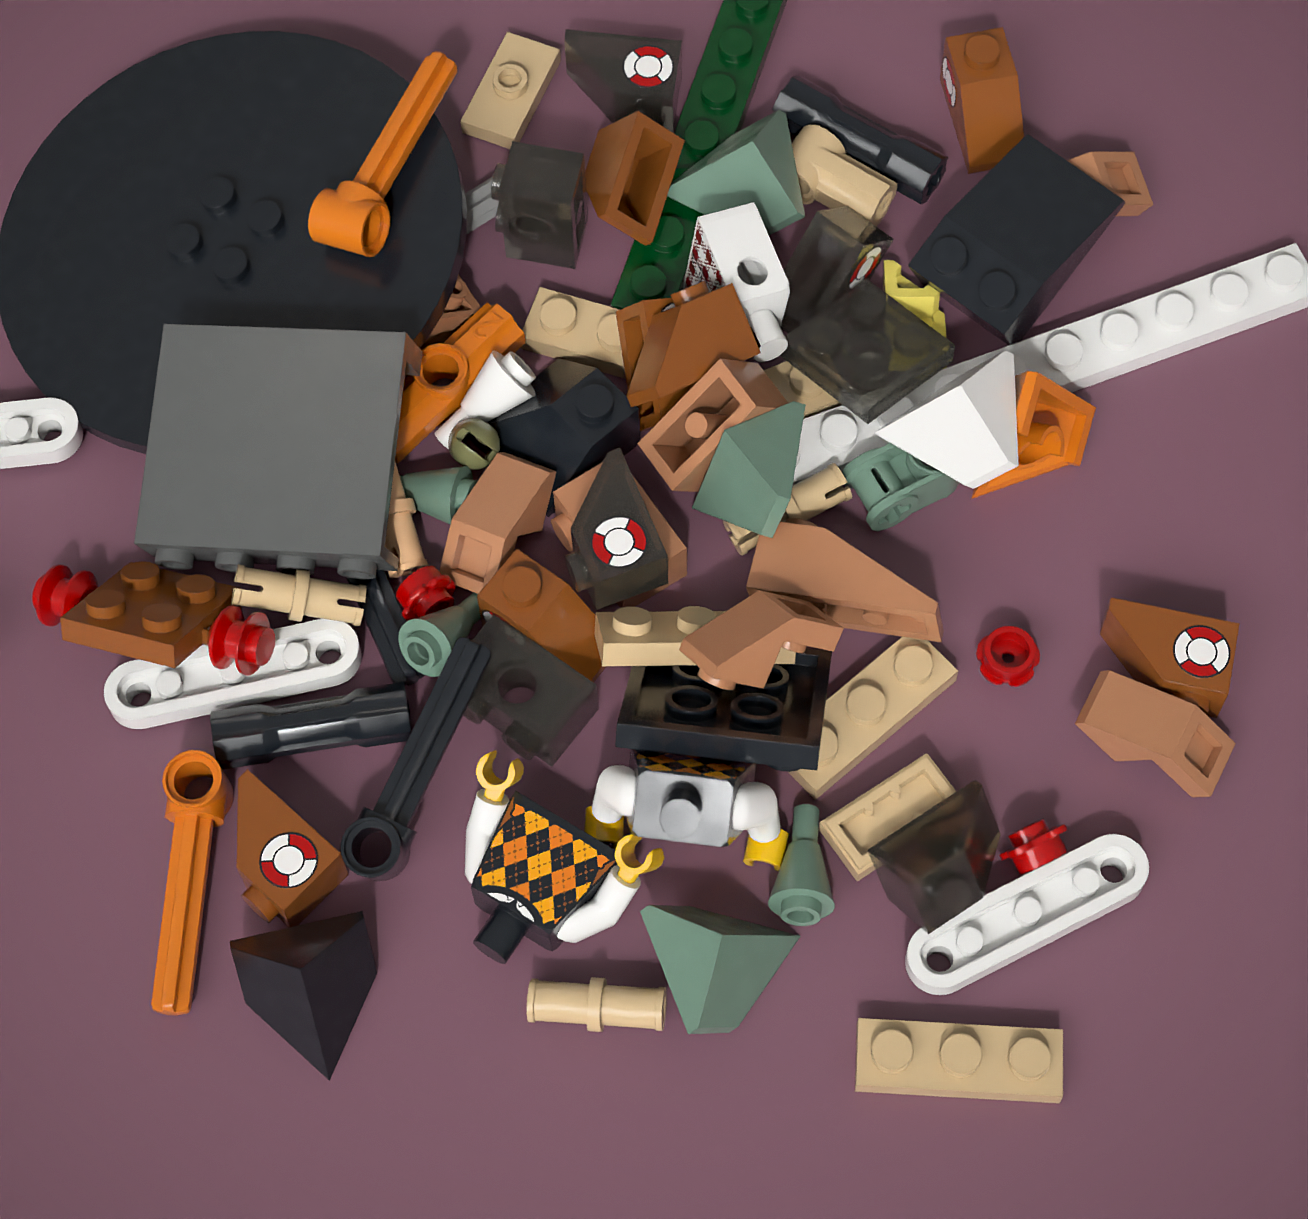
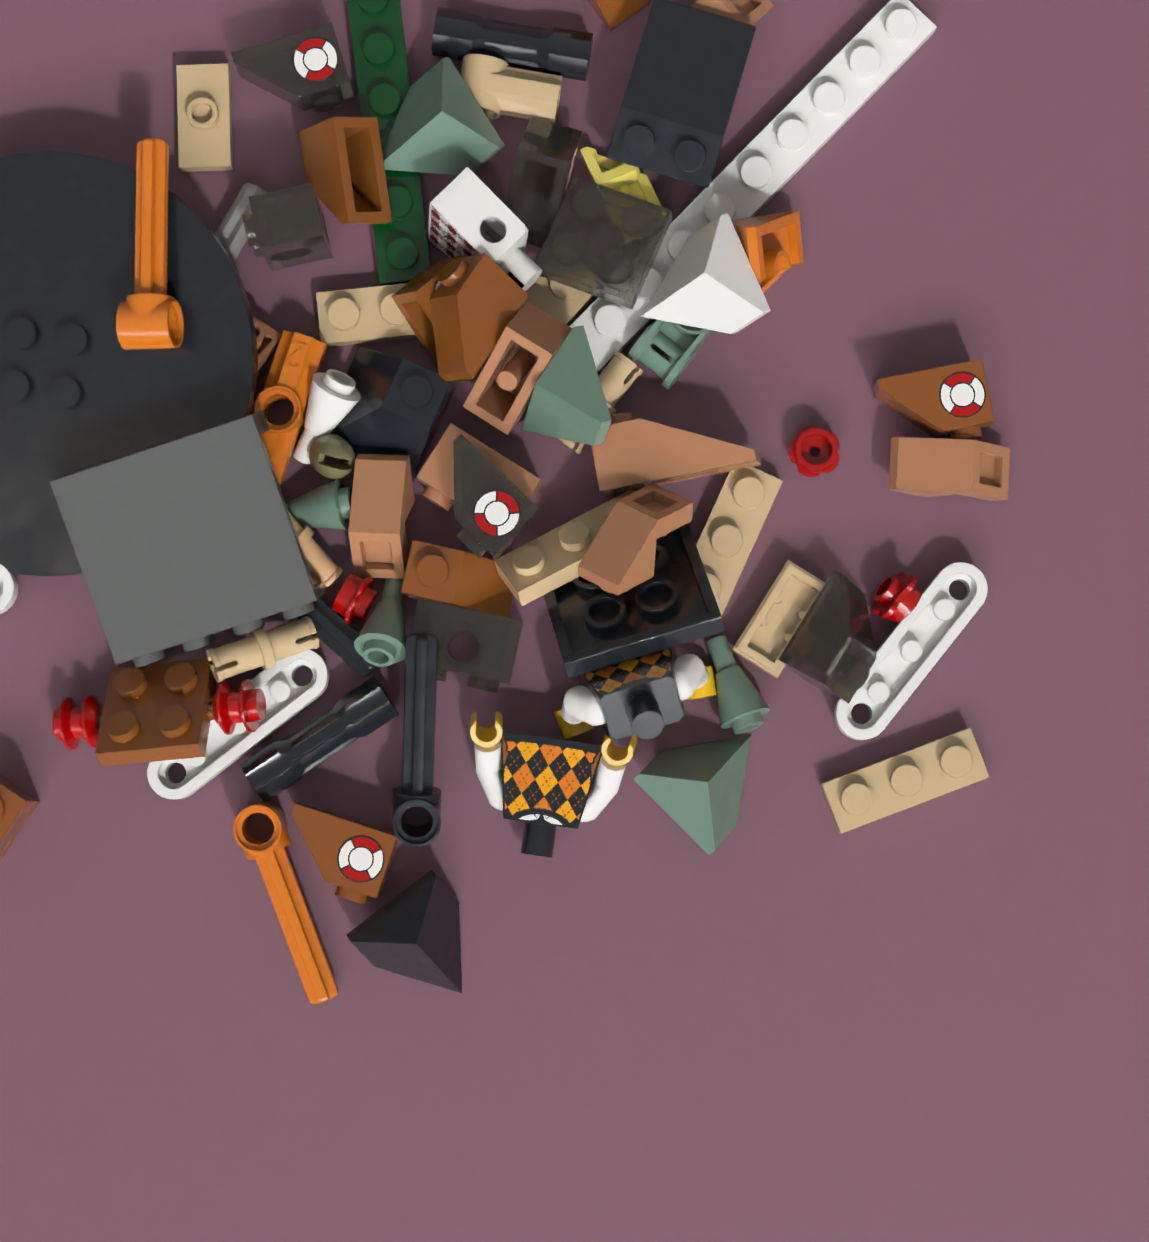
camera: 25 degrees left, 20 degrees up
(596, 1004) = (630, 857): tan pin -> none

